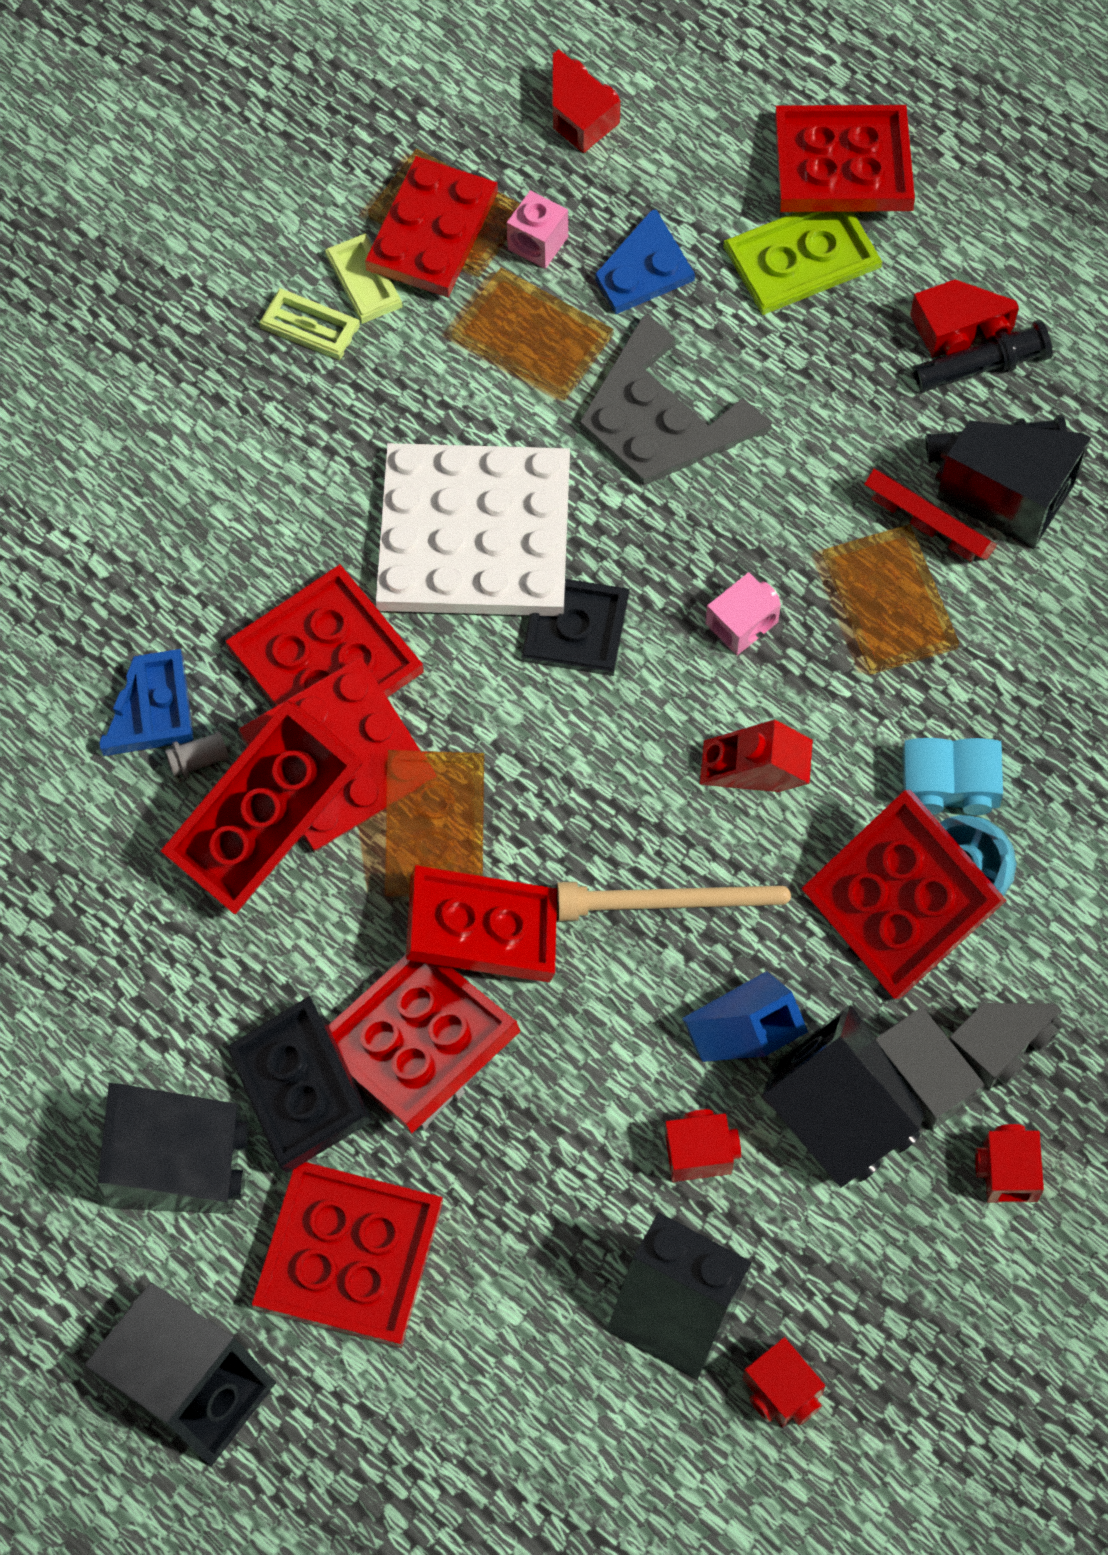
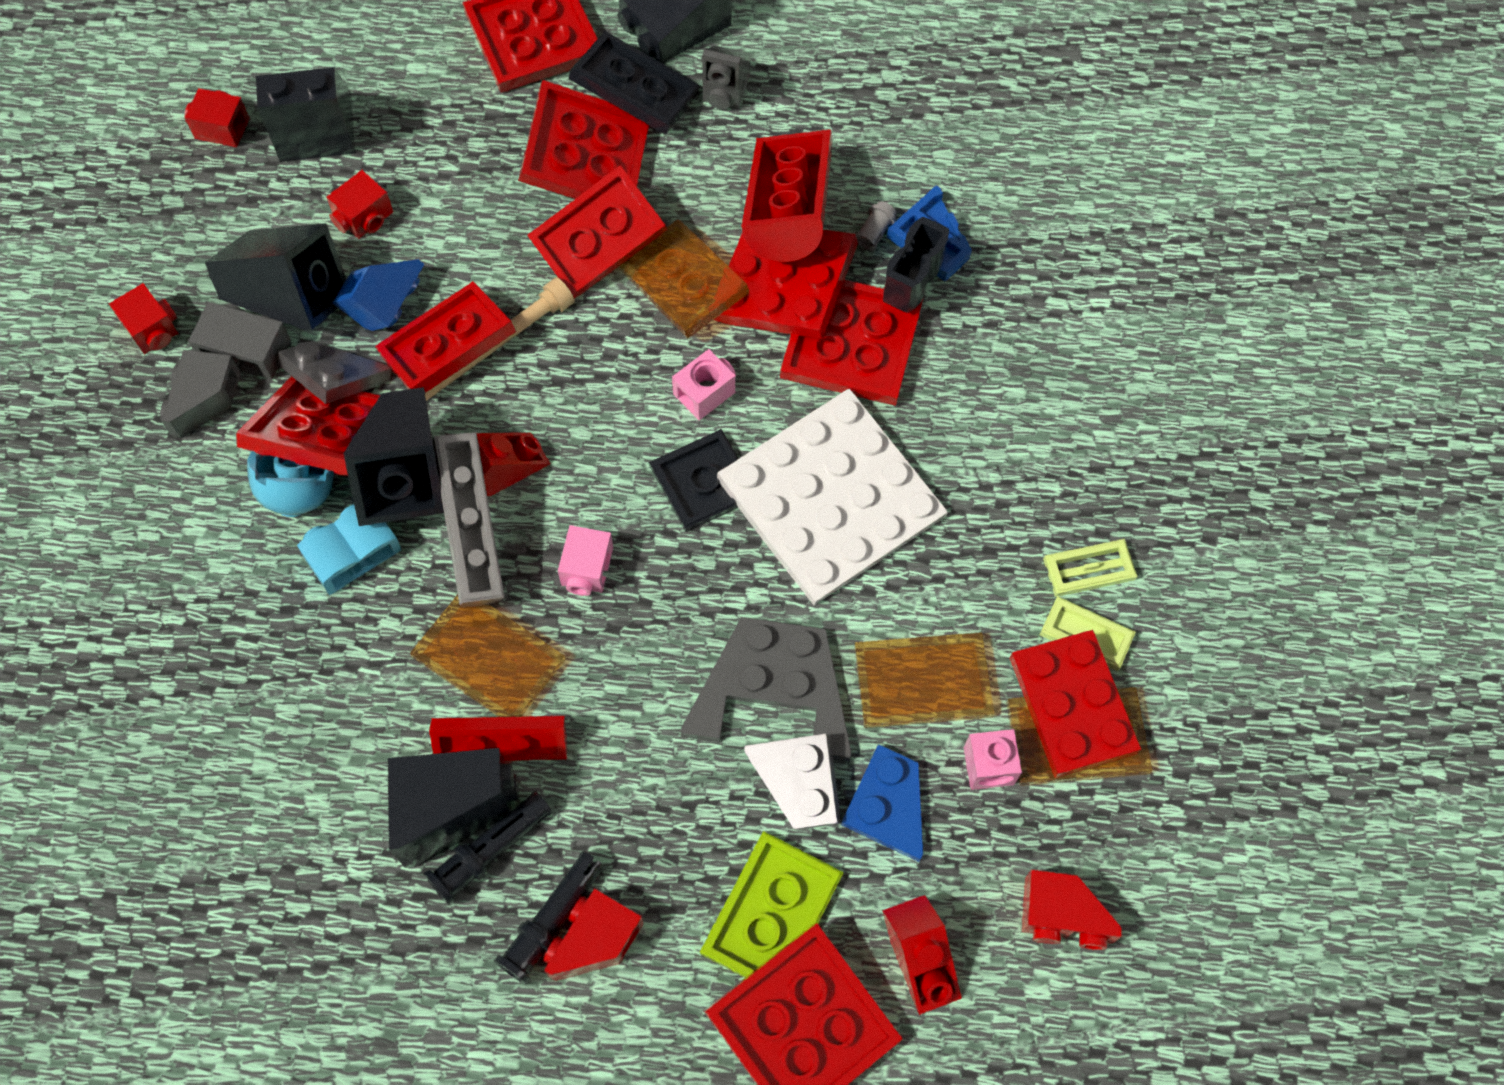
camera: 140 degrees right, 0 degrees up
(196, 1017) = (724, 76): none -> dark grey slope
(209, 649) = (915, 264): none -> black brick
(512, 685) = (702, 399): none -> bright pink brick
(702, 326) = (800, 778): none -> wing
(711, 146) = (923, 953): none -> red slope
(719, 918) = (446, 338): none -> red plate
(829, 695) = (468, 519): none -> light grey brick
(851, 785) = (394, 461): none -> black slope
(855, 968) = (330, 371): none -> flat silver wing

